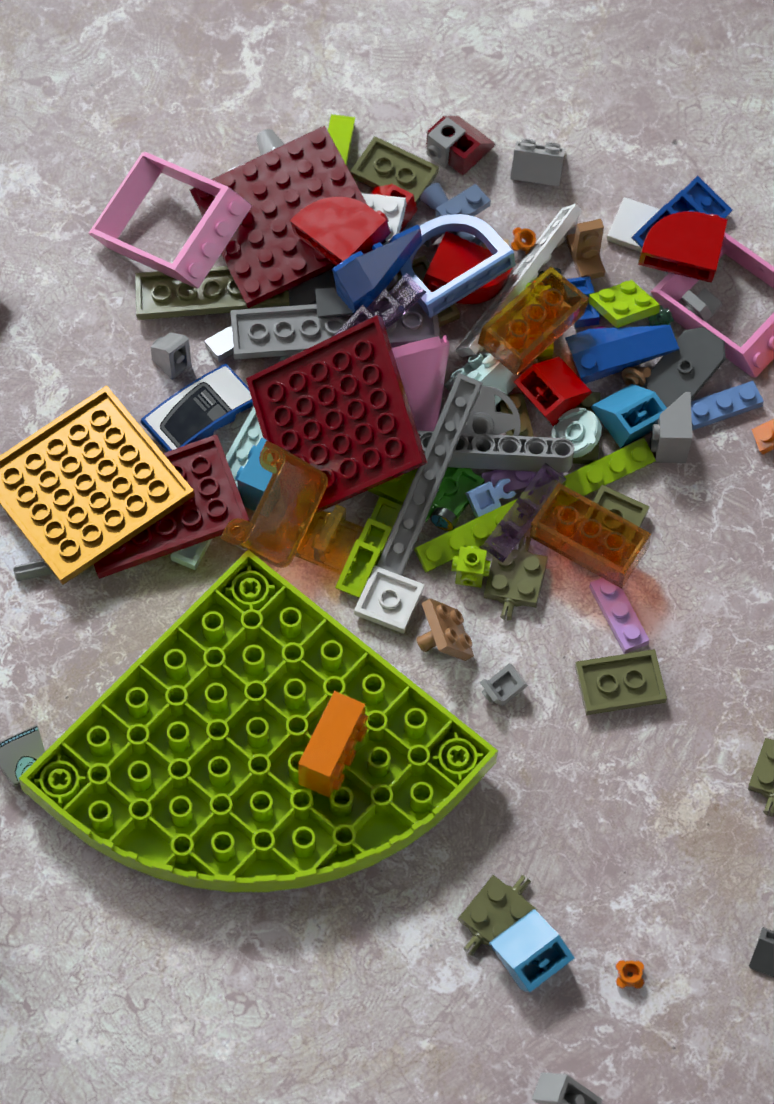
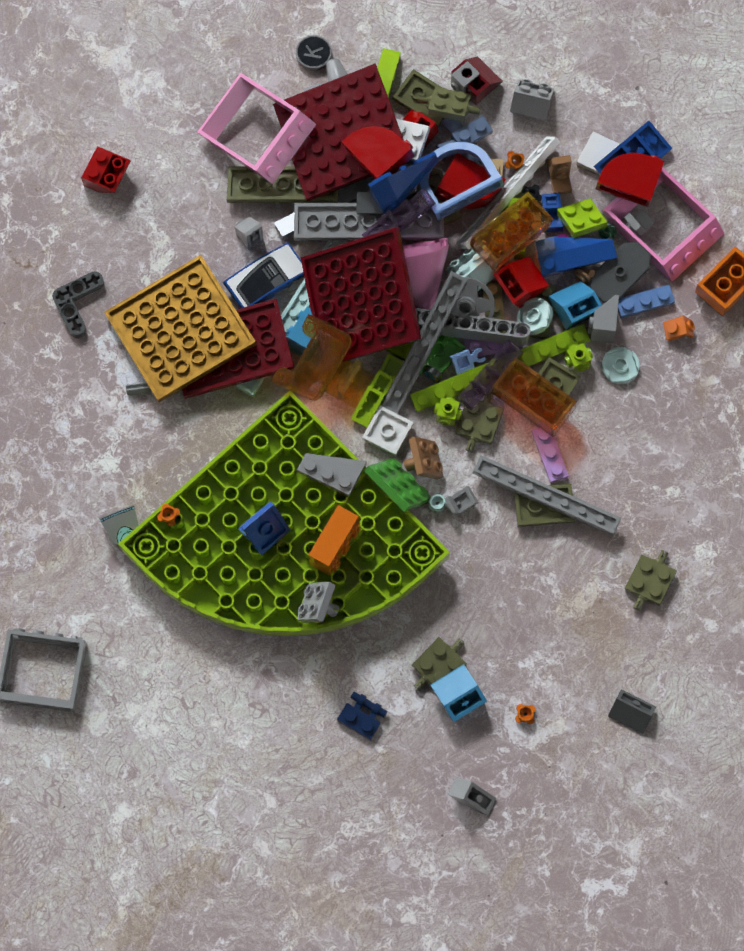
camera: 10 degrees right, 10 degrees up
(89, 723) = (163, 514): none -> orange plate
(230, 736) = (265, 528): none -> blue bracket
(237, 126) = (313, 52): none -> black tile
(315, 834) = (317, 602): none -> light grey plate
(319, 654) = (332, 472): none -> light grey wing
(389, 1005) = (358, 720): none -> dark blue plate
(413, 667) = (398, 484): none -> bright green plate
(428, 172) = (449, 104): none -> olive plate
(469, 684) = (432, 503): none -> light aqua plate
(623, 667) = (546, 495): none -> light grey tile
(643, 482) = (575, 363): none -> lime brick
(701, 490) = (620, 365): none -> light aqua tile

